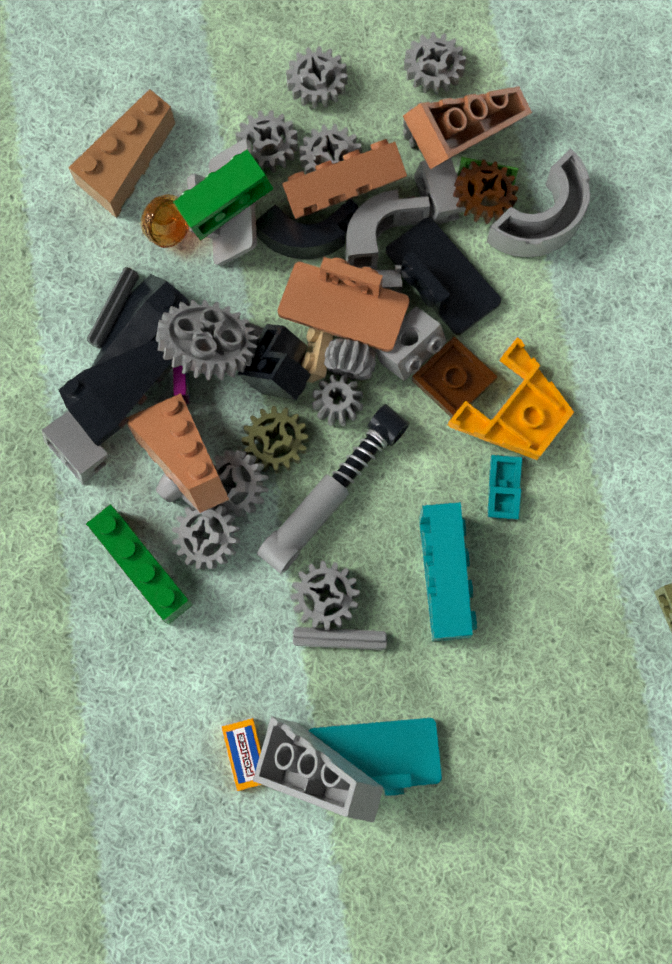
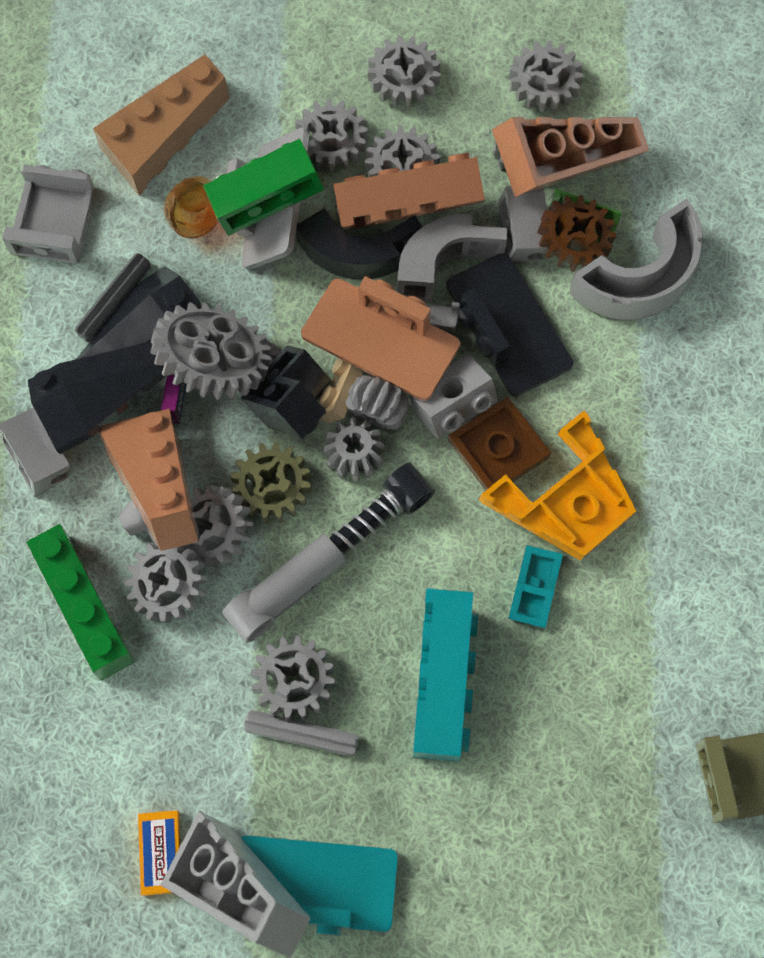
camera: 10 degrees right, 5 degrees down
(47, 246) = (51, 214): none -> light grey panel

